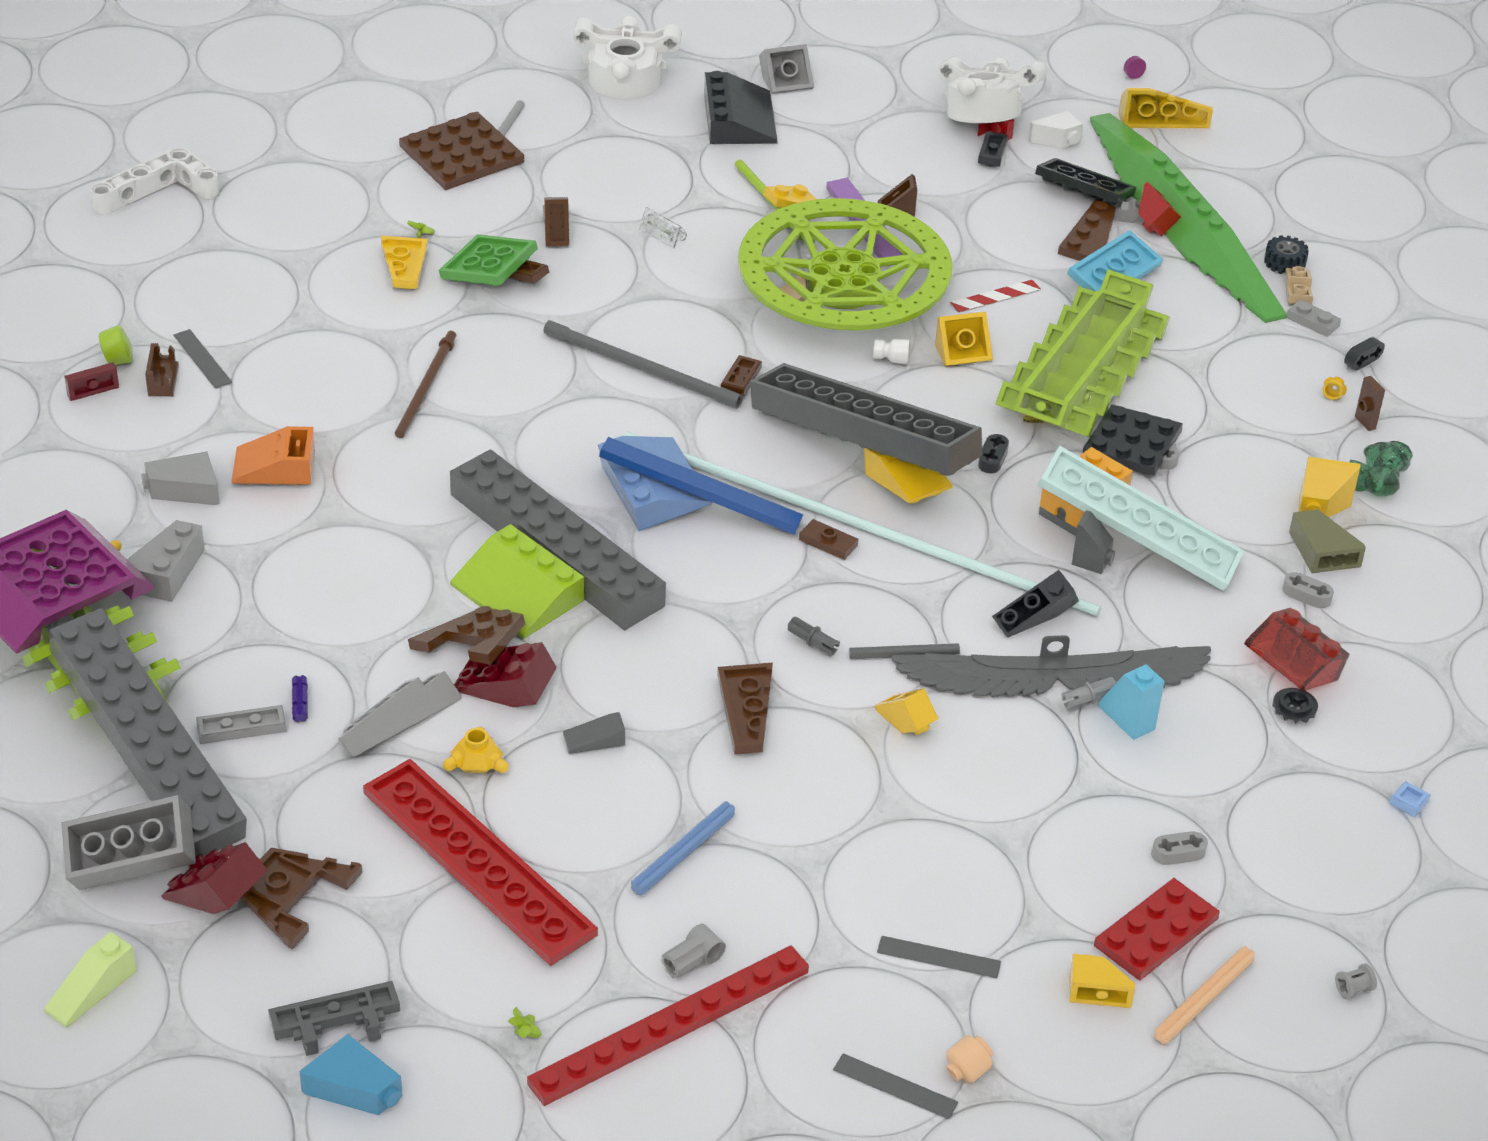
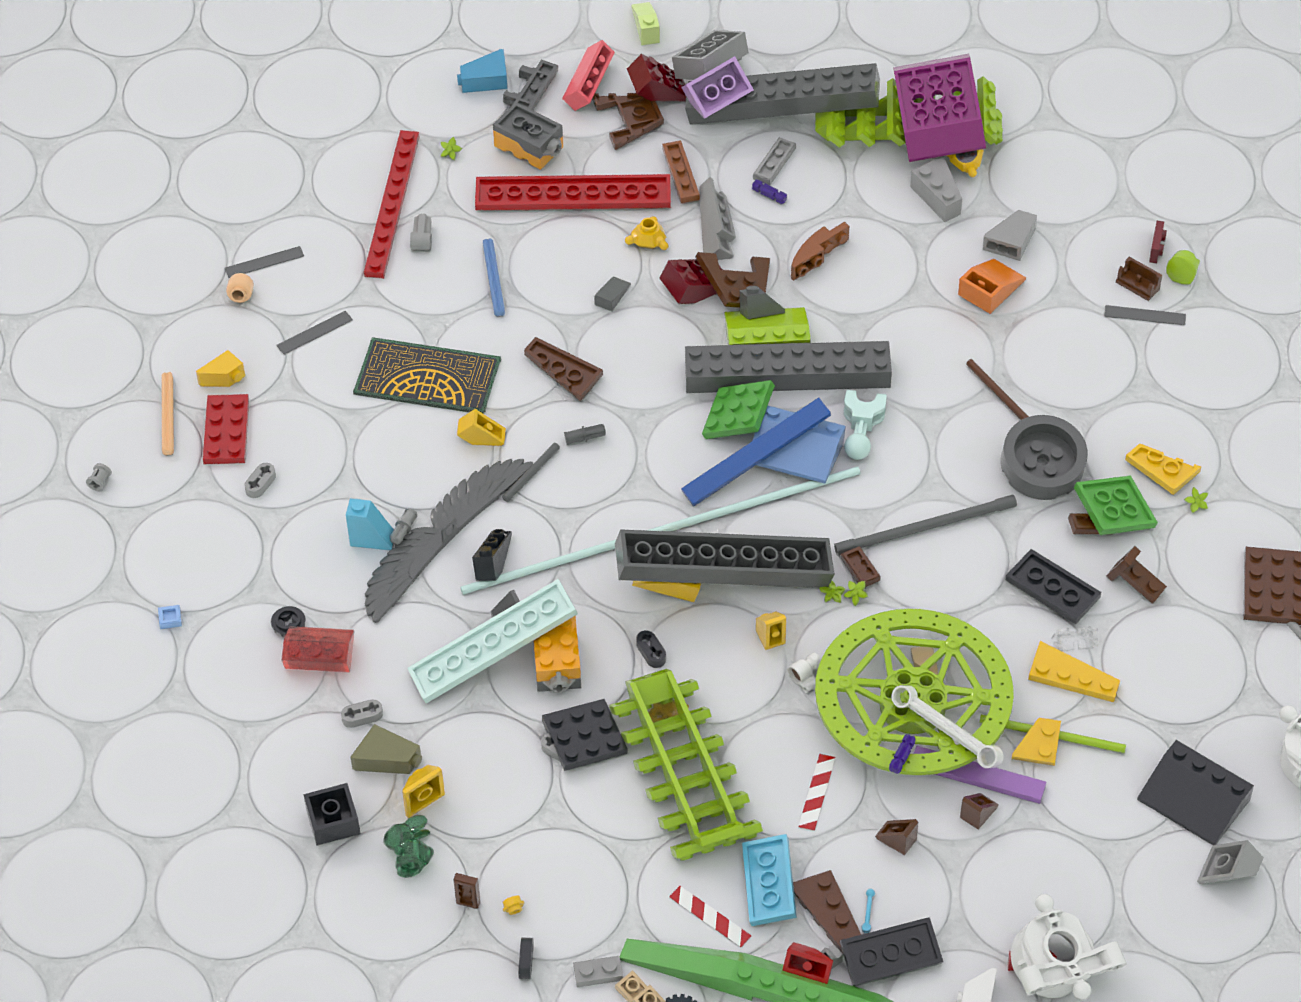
camera: 135 degrees right, 10 degrees up
(202, 775) = (717, 88): none -> lavender slope
(262, 960) = (588, 75): none -> coral brick
(344, 786) = (681, 171): none -> dark orange plate
(365, 609) = (813, 249): none -> dark orange slope
(437, 940) = (528, 135): none -> dark grey piece
(482, 317) = (1039, 438): none -> dark grey brick
(497, 593) = (757, 303): none -> dark grey slope
(558, 458) = (862, 418): none -> light aqua piece
(621, 262) = (1053, 586): none -> black plate
(659, 530) = (738, 409): none -> bright green plate
(701, 220) = (1068, 673): none -> yellow wing
(770, 361) = (856, 591): none -> lime plant
(828, 539) = (660, 504): reddish brown plate -> none
(862, 256) = (947, 726): none -> white piece
(882, 816) = (427, 375): none -> black piece
(885, 373) = (771, 629): none -> yellow slope
(921, 229) = (902, 753): none -> dark purple axle
(963, 339) = (774, 716): yellow slope -> none
(979, 223) = (899, 834): none -> reddish brown slope
(993, 149) = (994, 929): black plate -> none
(1076, 213) = (866, 927): none -> medium azure hinge
(1182, 293) = (710, 916): none -> sticker
(1426, 528) = (331, 814): none -> black brick

